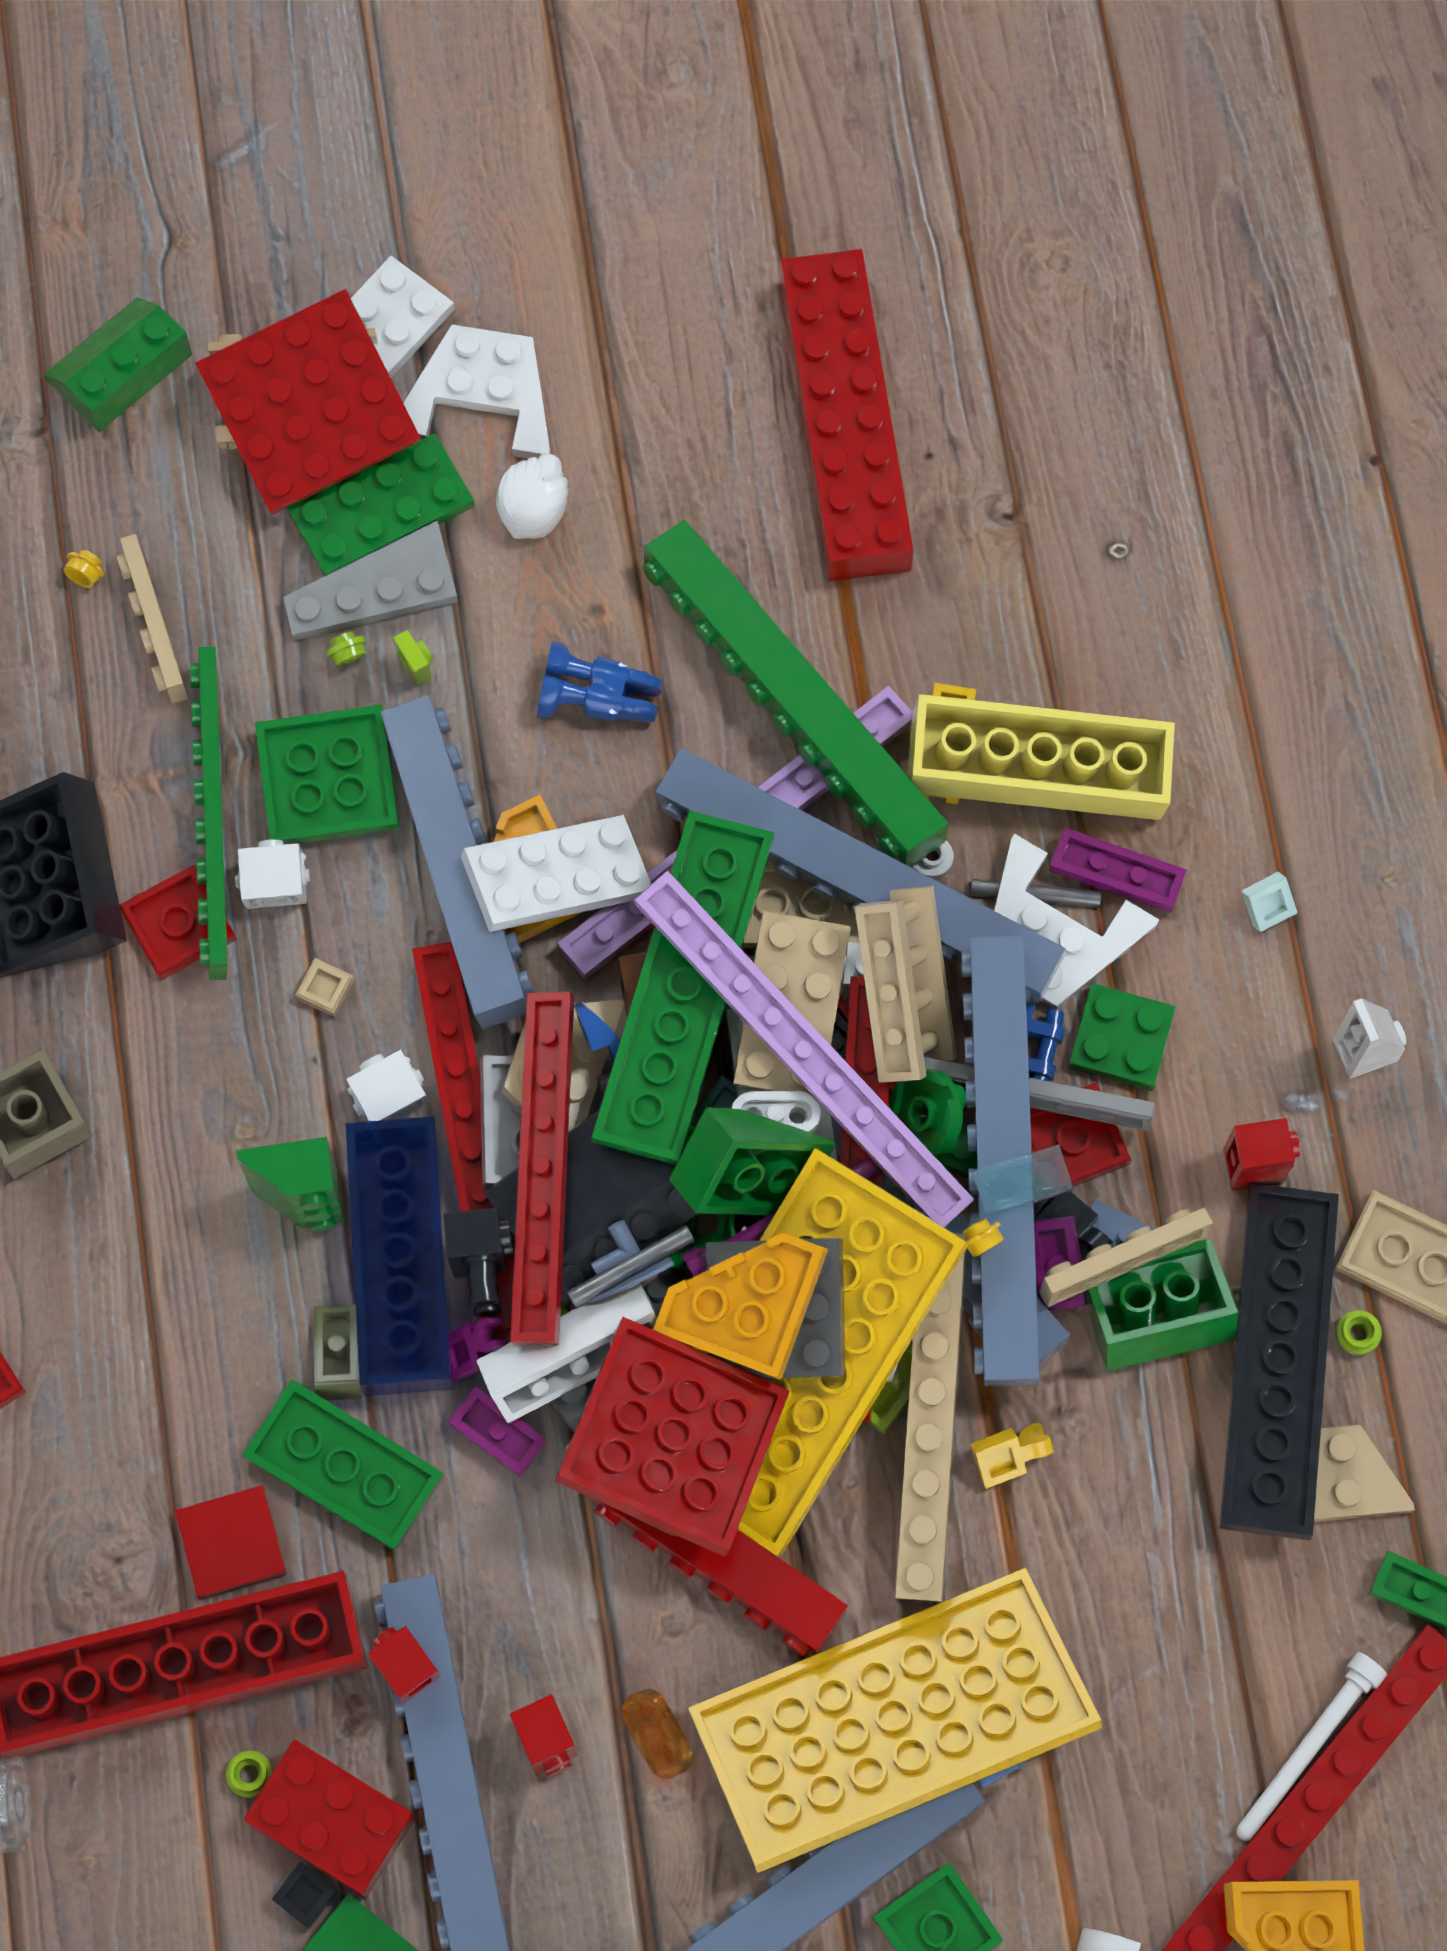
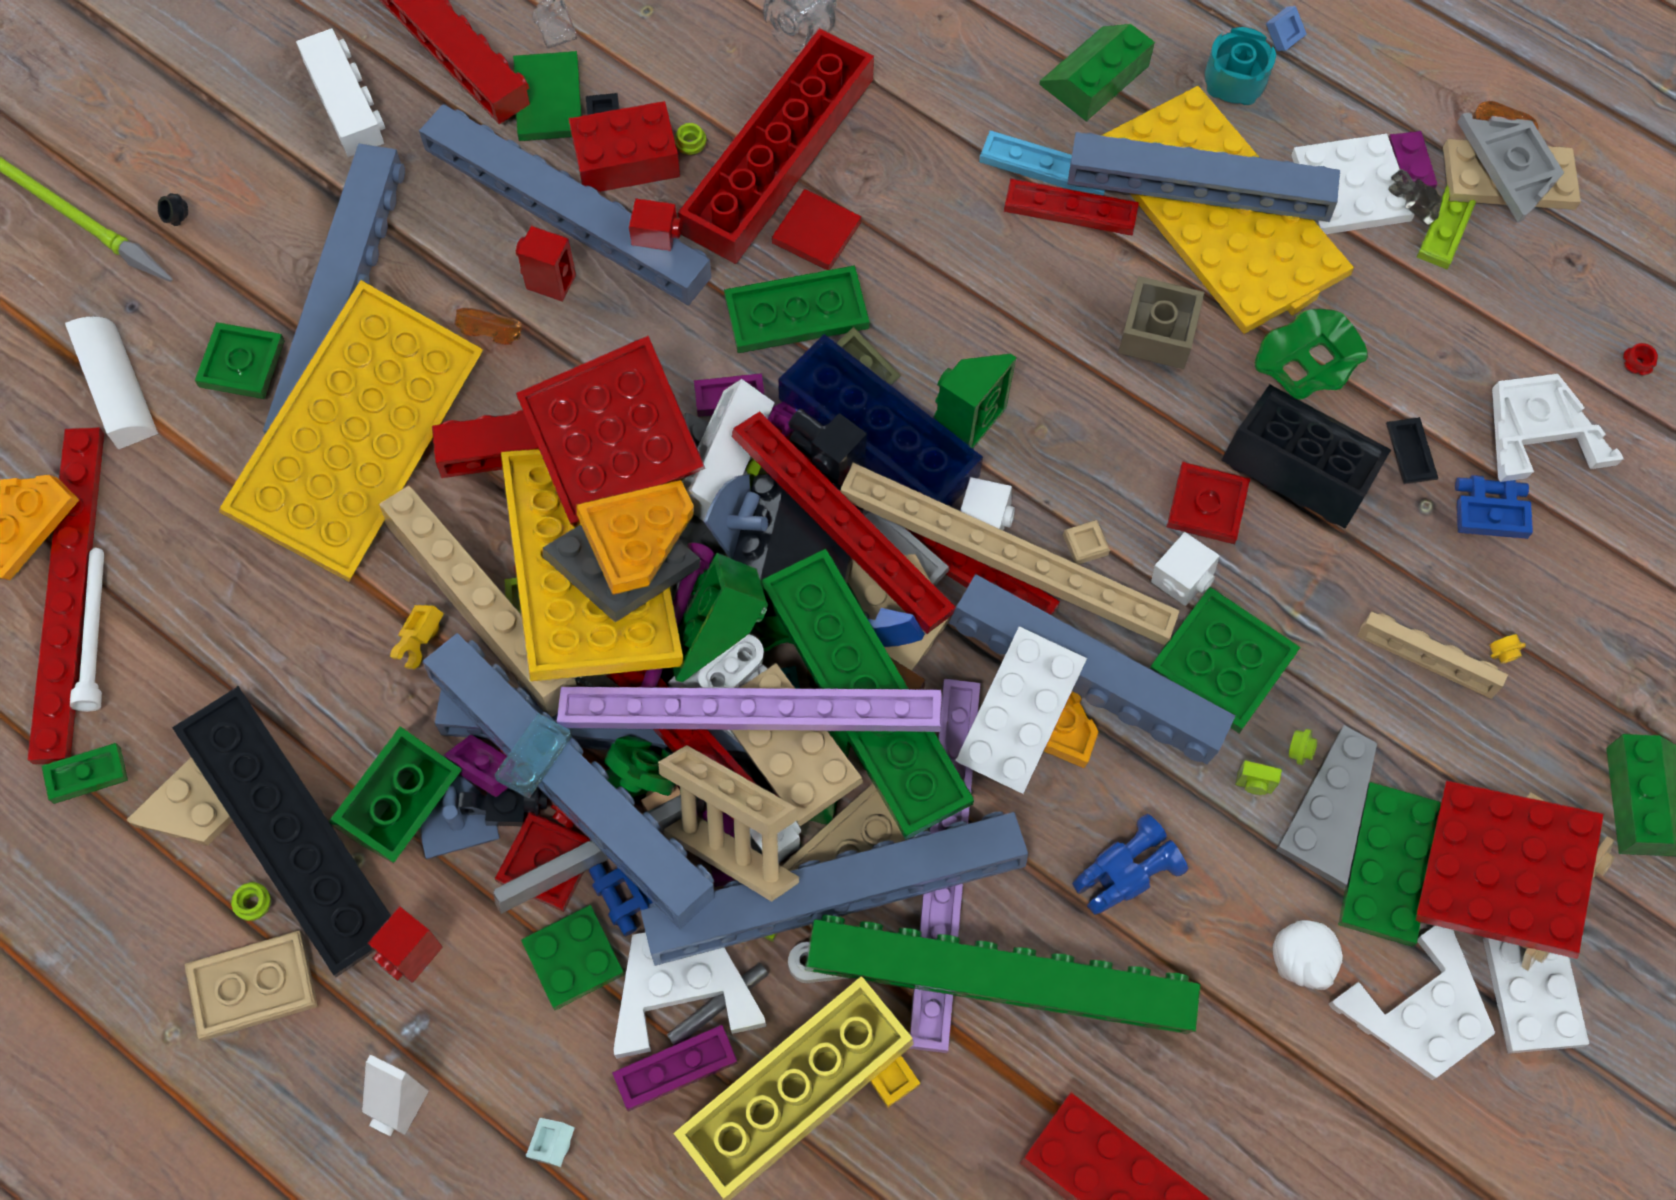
camera: 135 degrees right, 5 degrees down
(209, 829) = (1273, 578): green plate -> none
(418, 1023) = (1009, 554): none -> tan plate
(630, 1266) = (732, 508): flat silver bar -> none
(982, 1236) = (528, 700): yellow plate -> none
(1141, 1248) = (429, 804): tan plate -> none

